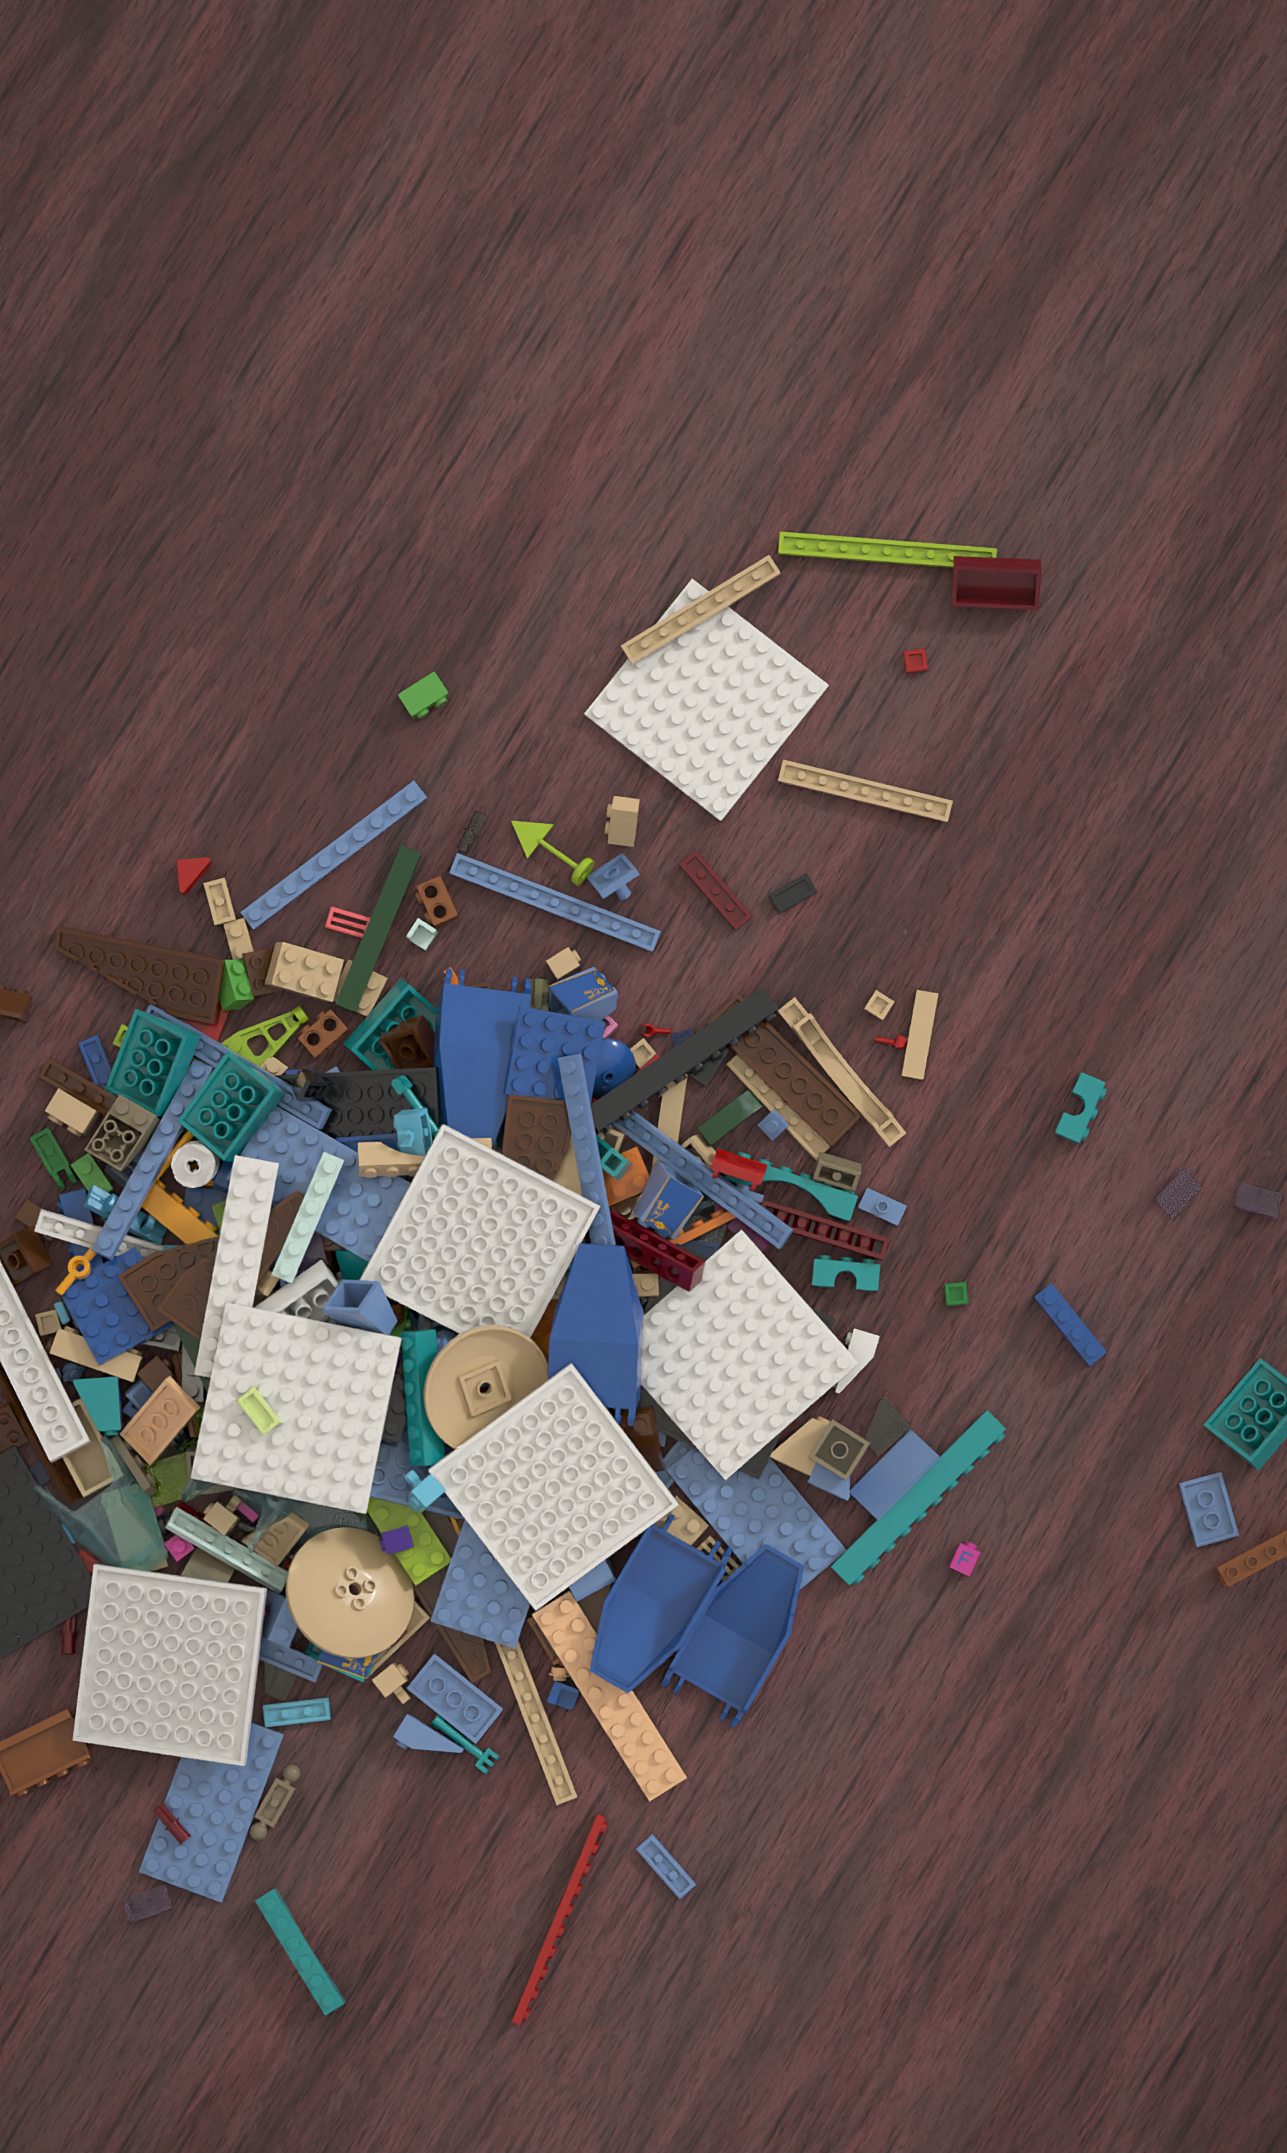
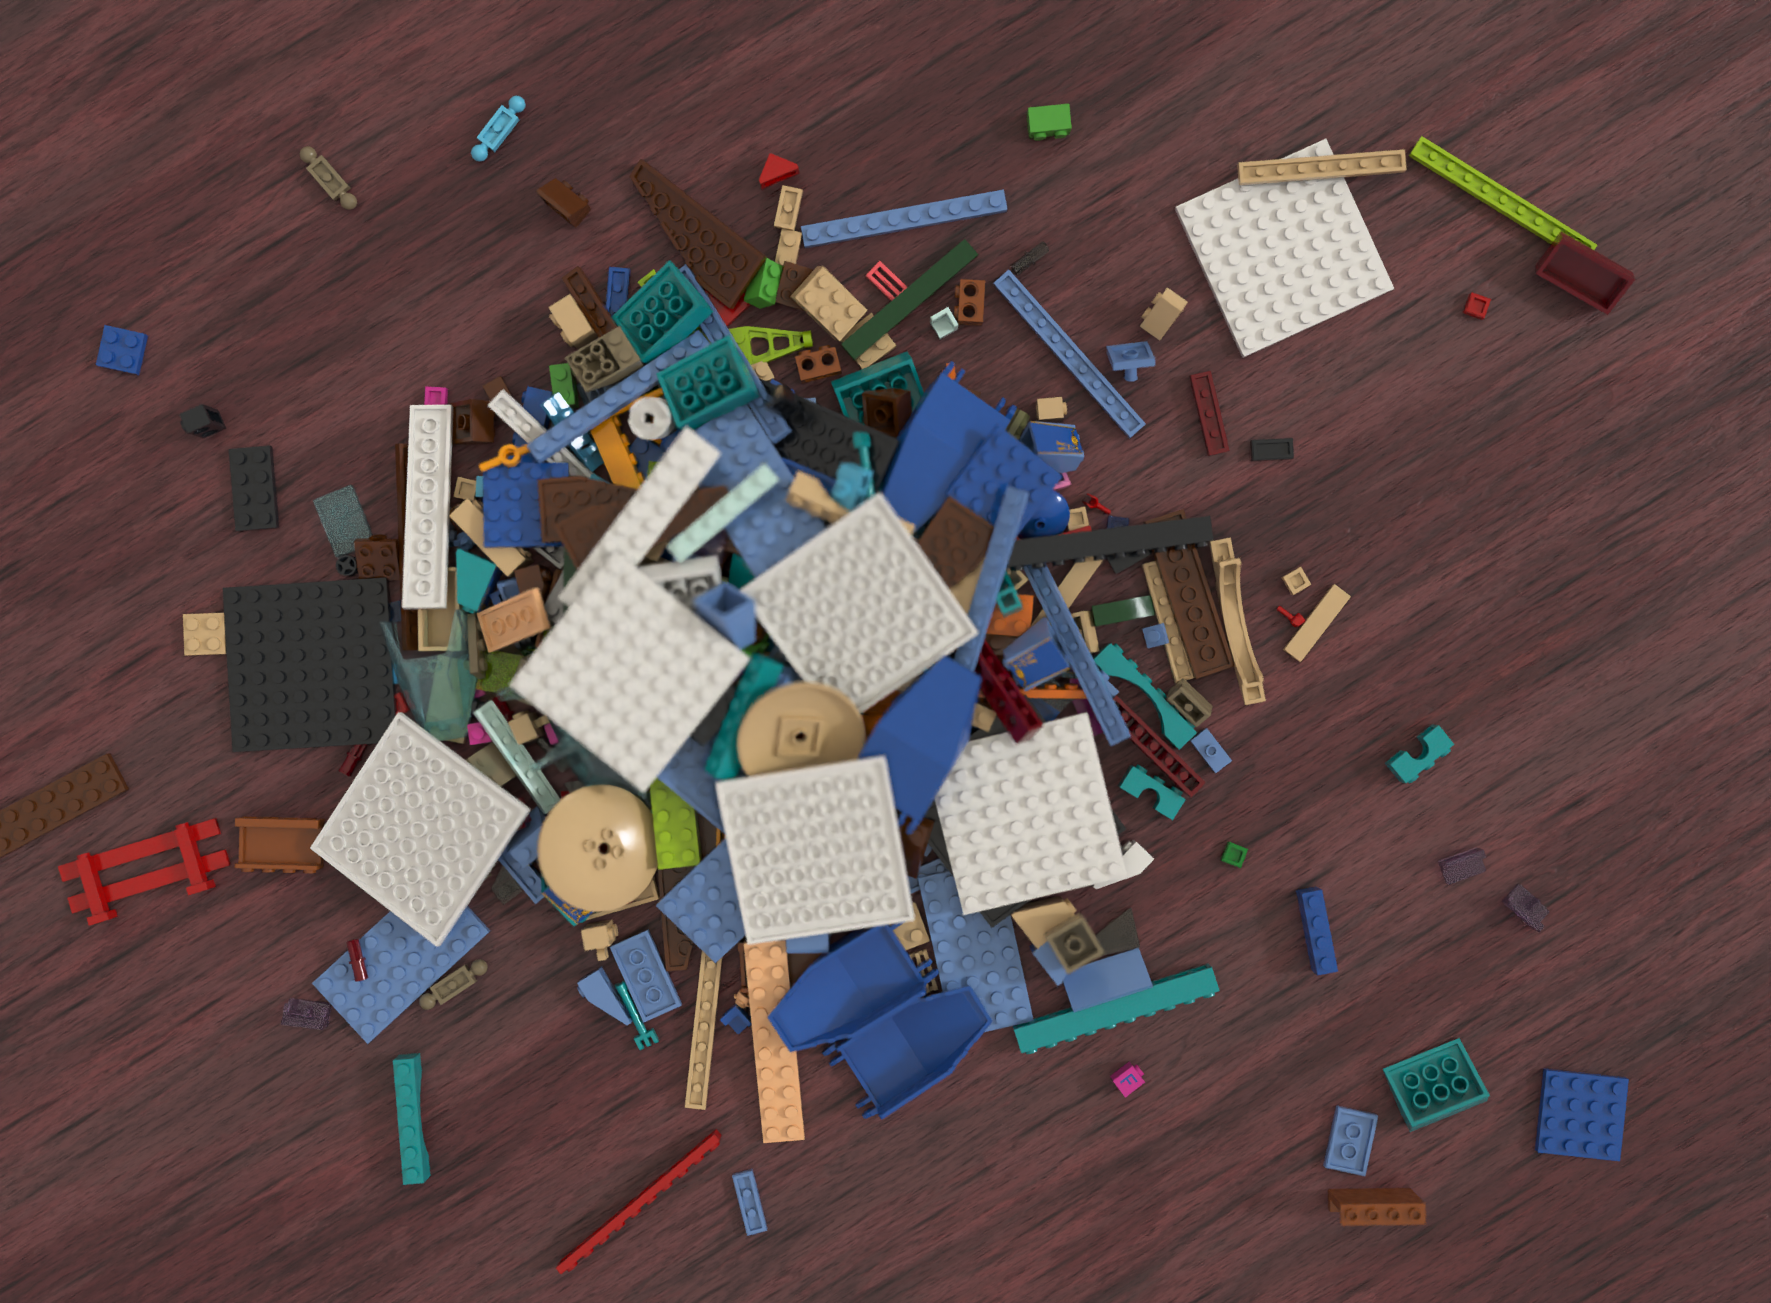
camera: 20 degrees right, 5 degrees up
(52, 1156) = (539, 351): green hinge -> none
(258, 1411) = (595, 658): yellowish green tile -> none
(267, 1283) = (660, 551): tan plate -> none
(279, 1538) = (566, 770): tan wing -> none
(296, 1712) = (509, 918): medium azure tile -> none
(396, 1540) = (660, 825): dark purple brick -> none
(424, 1491) = (703, 799): medium azure brick -> none
(532, 835) = (1079, 287): lime piece -> none
(738, 1167) = (1111, 658): red piece -> none
(865, 791) = (1378, 394): tan plate -> none

